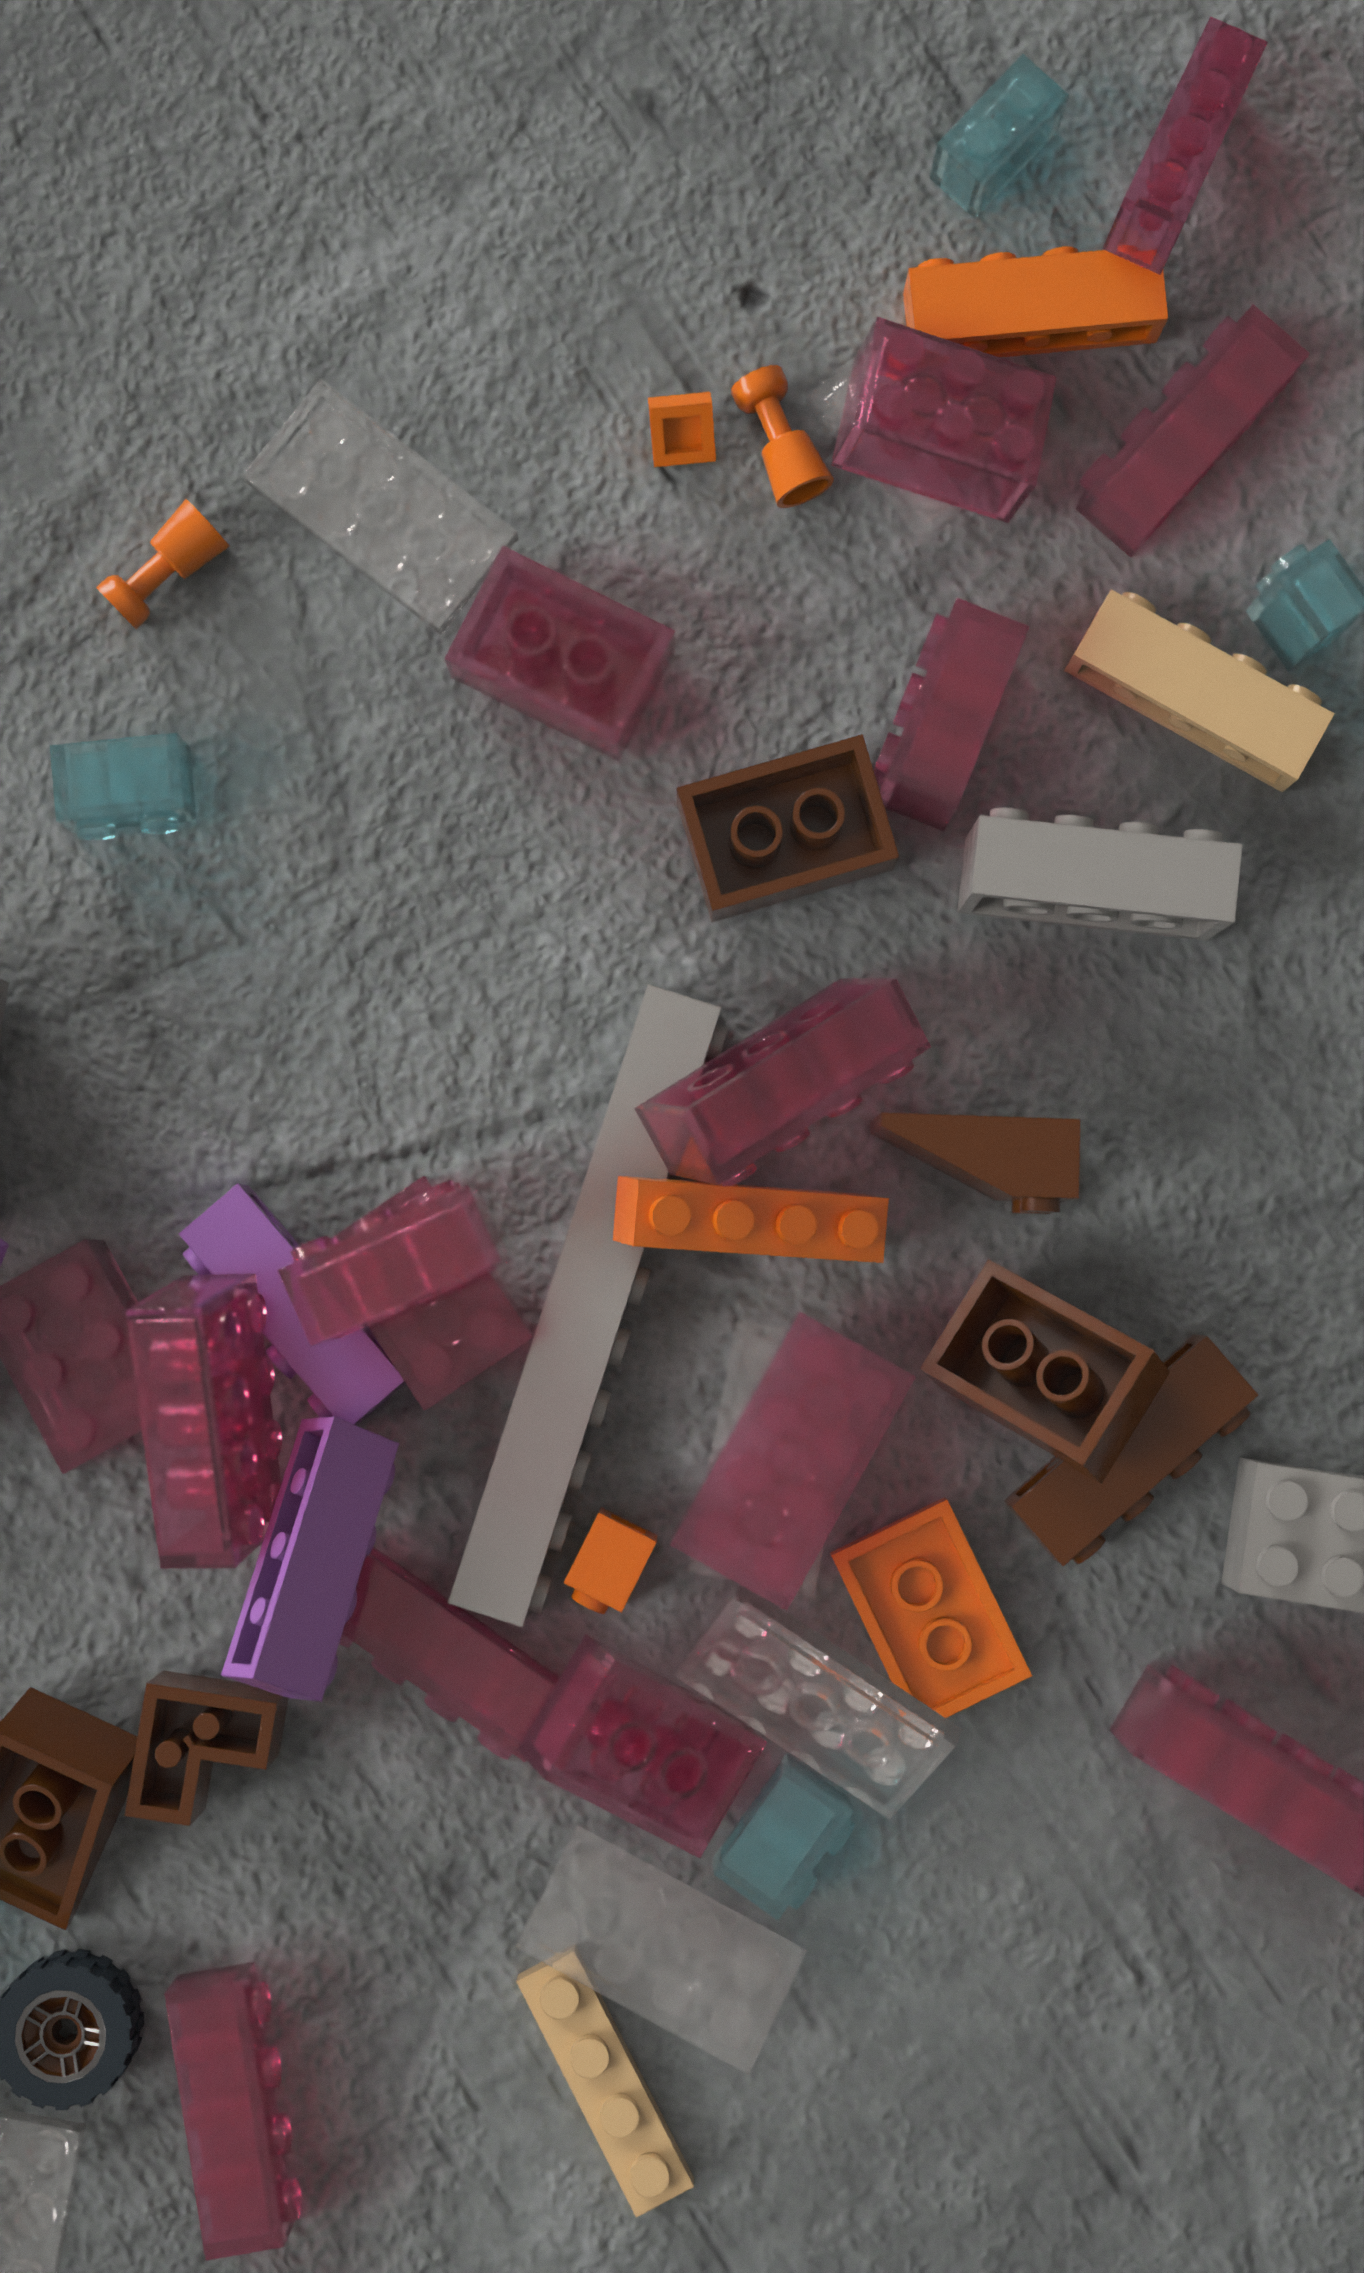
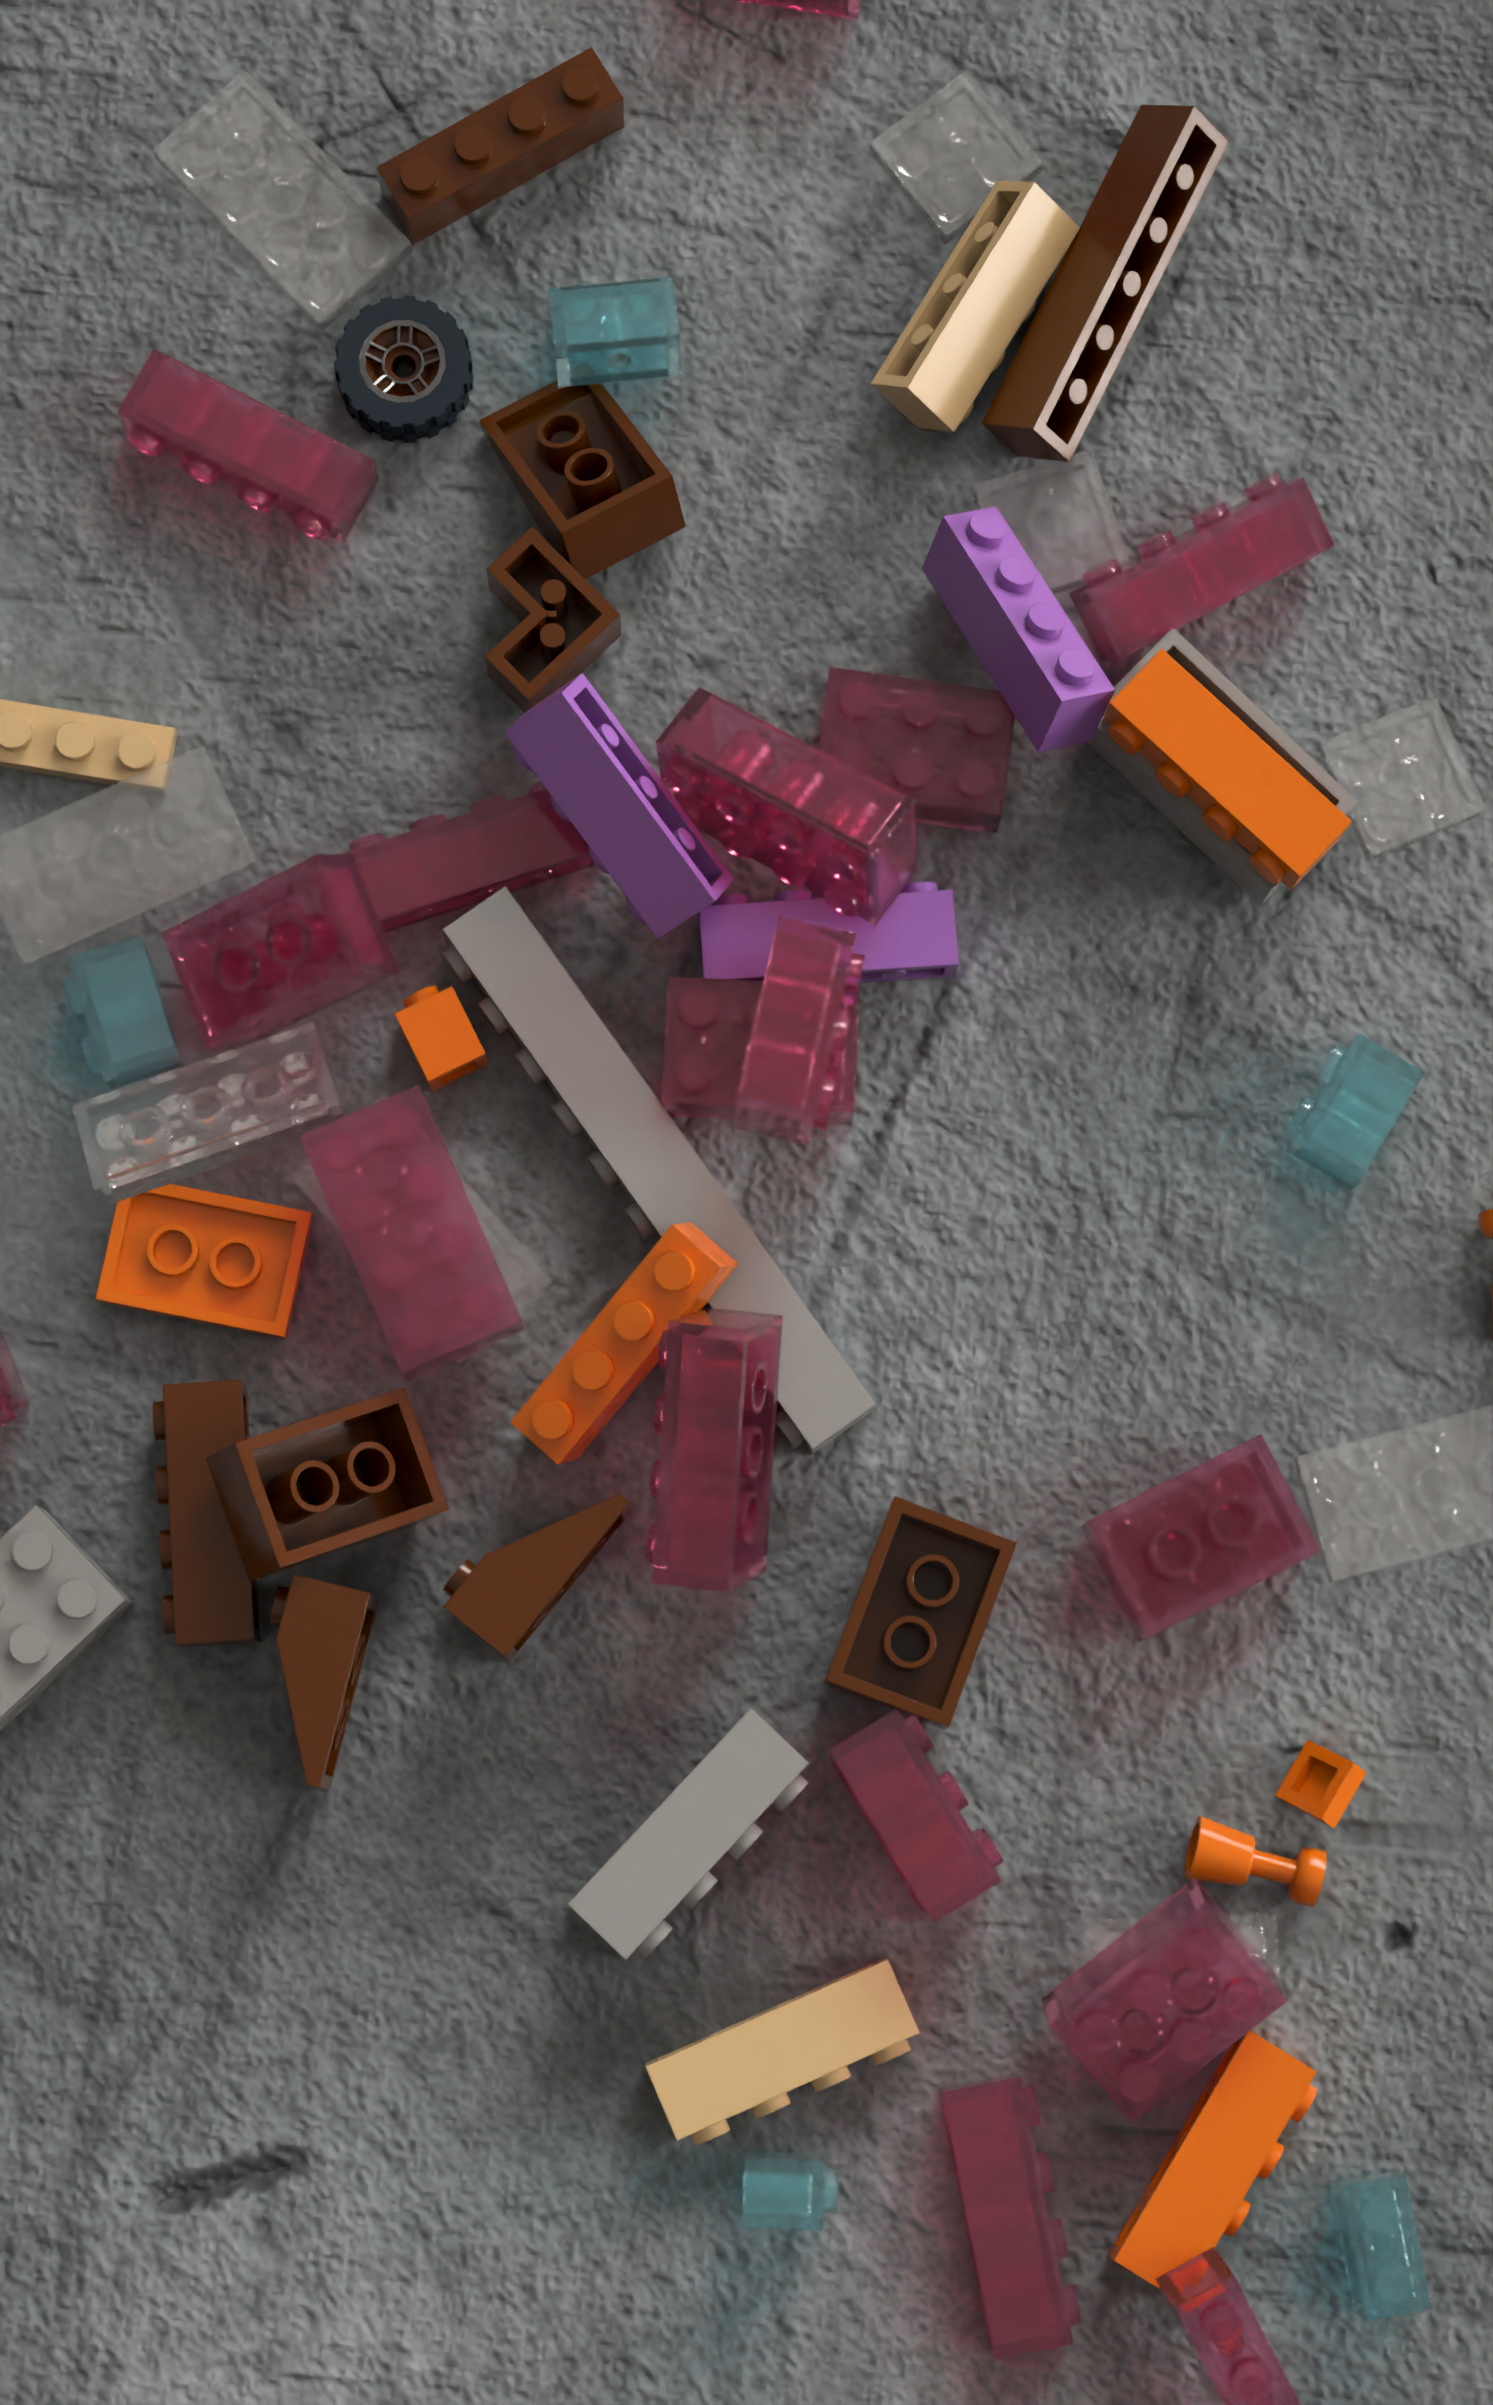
camera: 120 degrees right, 5 degrees down
(1184, 1272) = (321, 1655): none -> reddish brown slope

